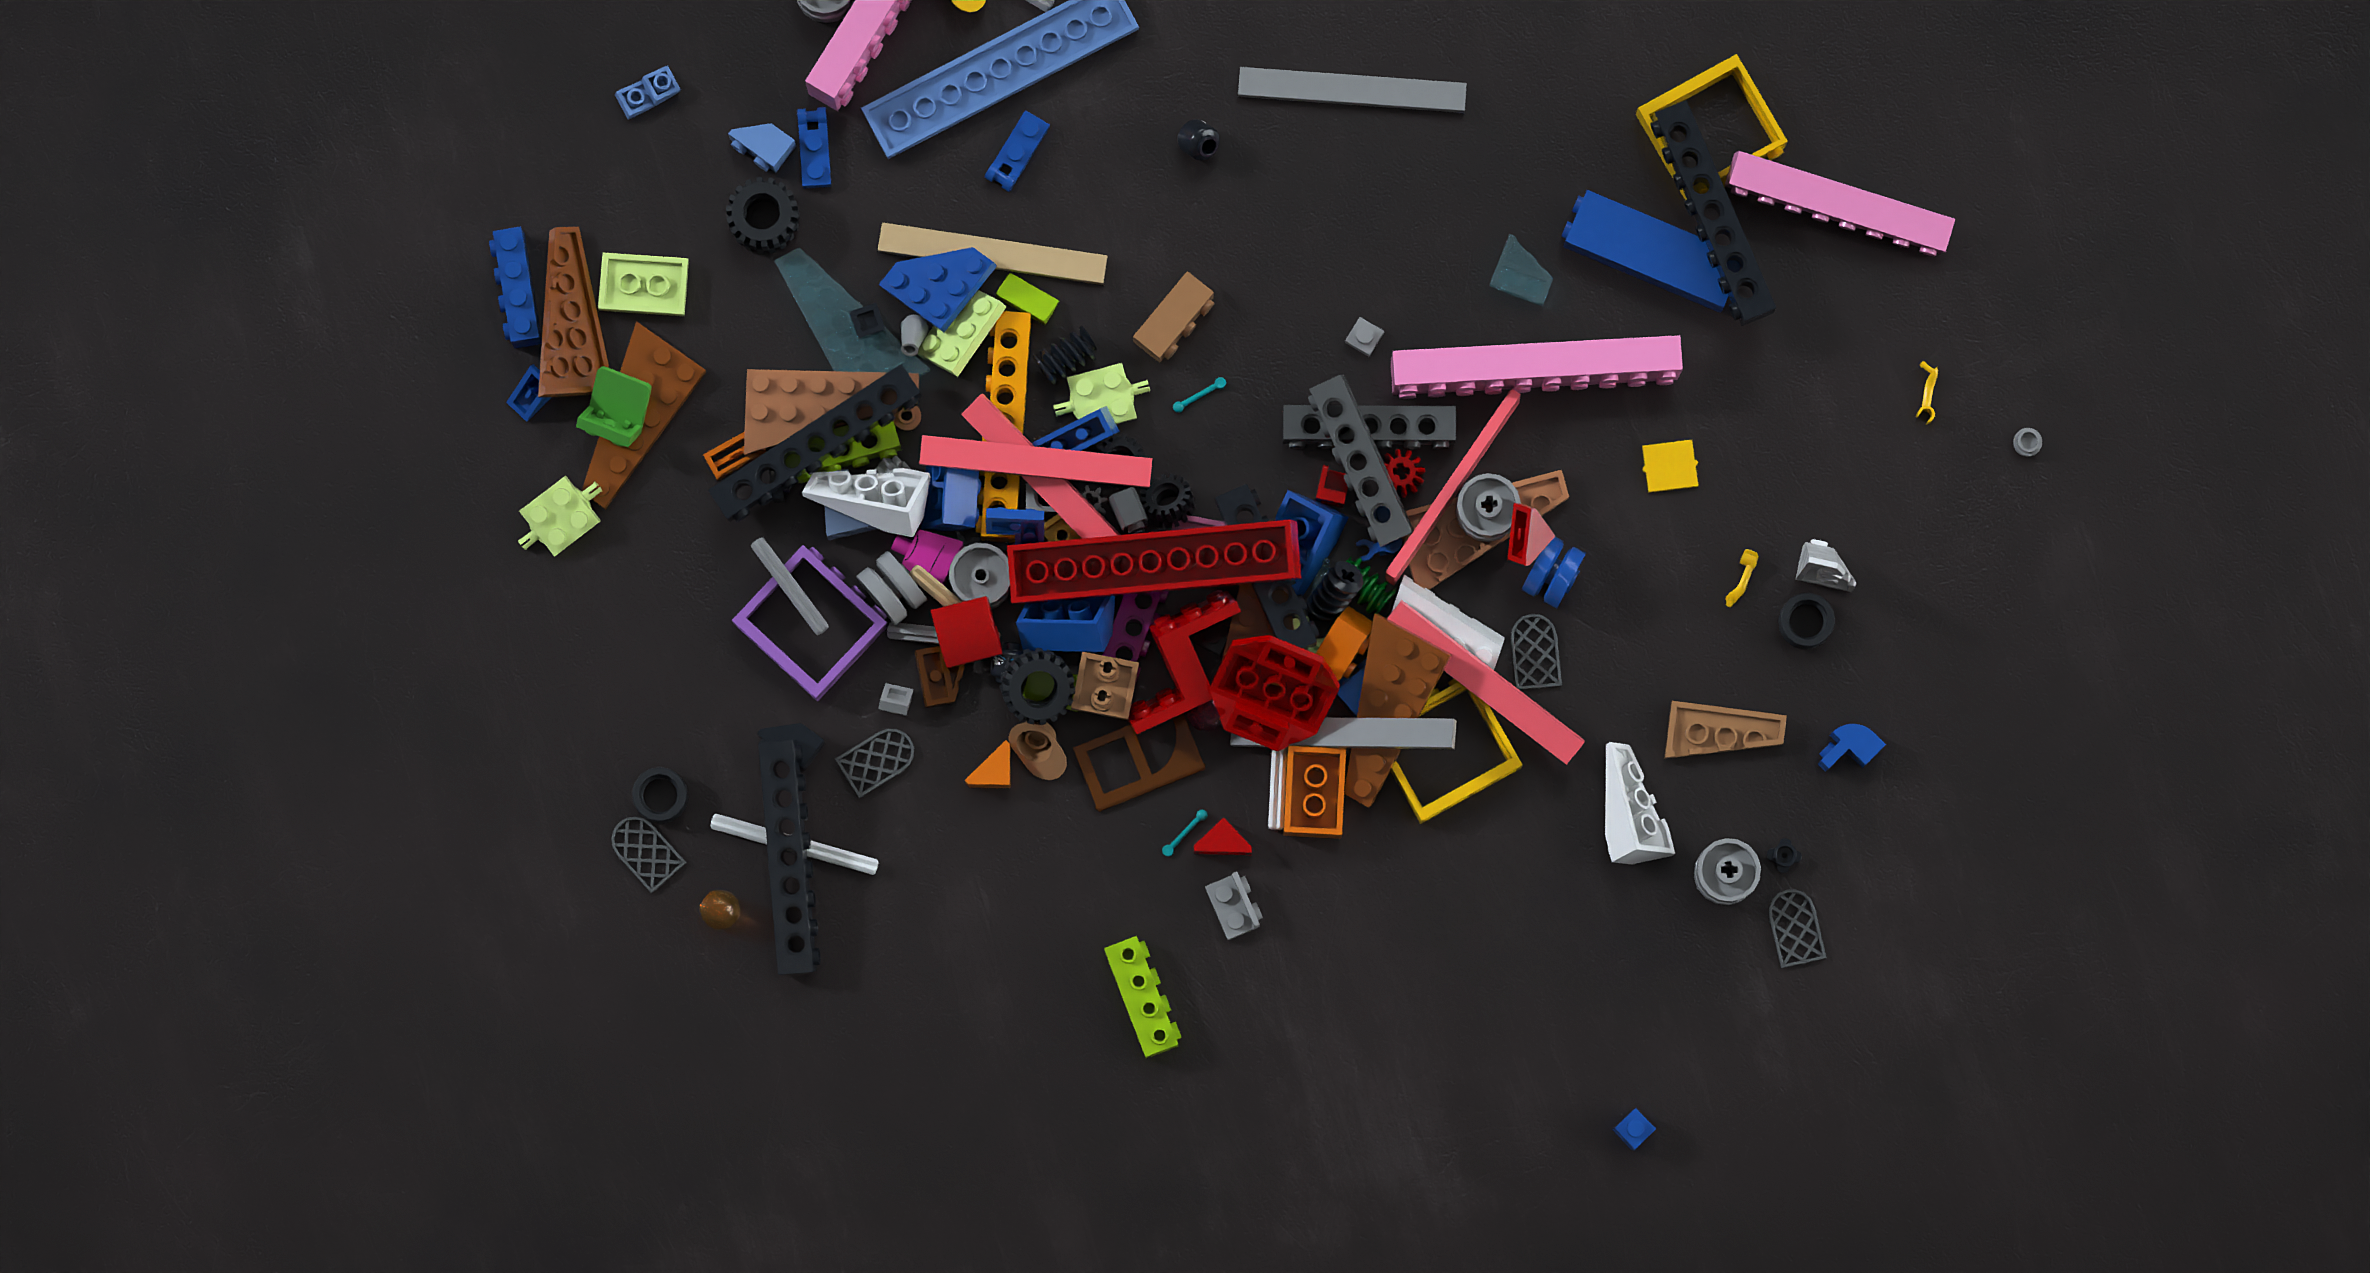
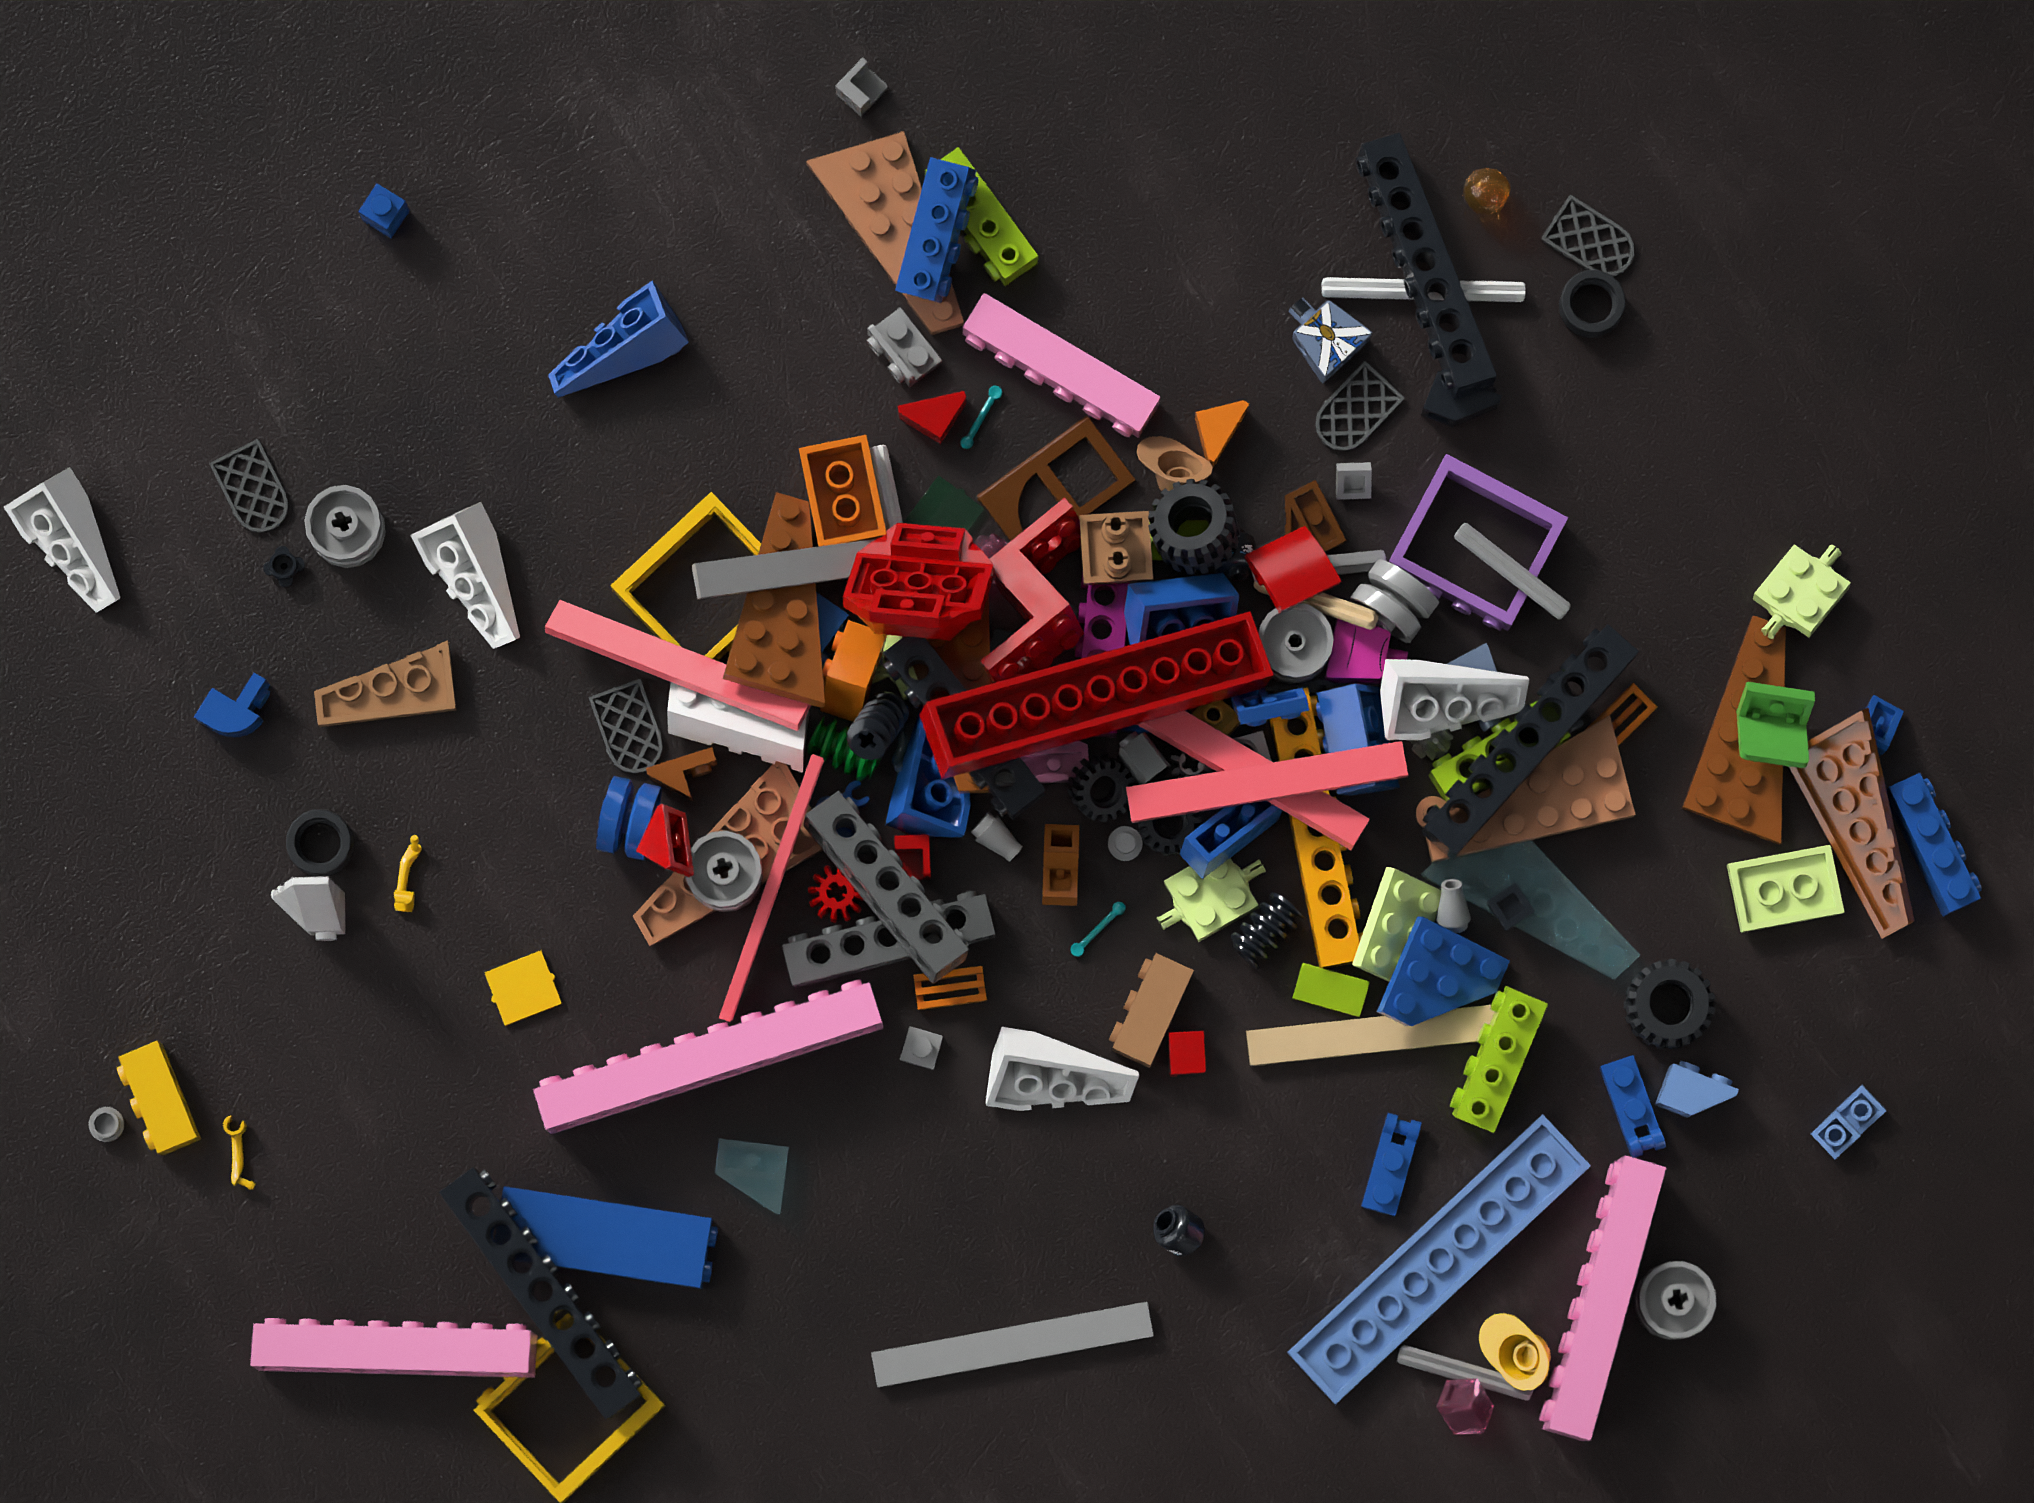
camera: 165 degrees right, 0 degrees up
(884, 823) = (1327, 336): none -> torso
(910, 206) = (1499, 1058): none -> lime brick
(1108, 855) = (1061, 366): none -> bright pink brick
(1155, 276) = (1186, 1053): none -> red panel
(1162, 455) = (1125, 843): none -> light grey plate
(1182, 987) = (936, 230): none -> blue brick
(1212, 1133) = (860, 87): none -> light grey panel
(1216, 446) = (1060, 864): none -> dark orange brick
(1216, 1026) = (879, 197): none -> nougat wing
(1235, 764) = (945, 507): none -> clear green piece
(1266, 489) = (996, 836): none -> light grey cone
(1274, 294) = (1041, 1070): none -> white wedge
(1329, 367) = (979, 983): none -> orange tile
(1456, 967) = (636, 338): none -> blue wedge
(1509, 602) = (672, 773): none -> dark orange slope
(1956, 934) = (64, 527): none -> white wedge
(1981, 450) = (158, 1098): none -> yellow brick

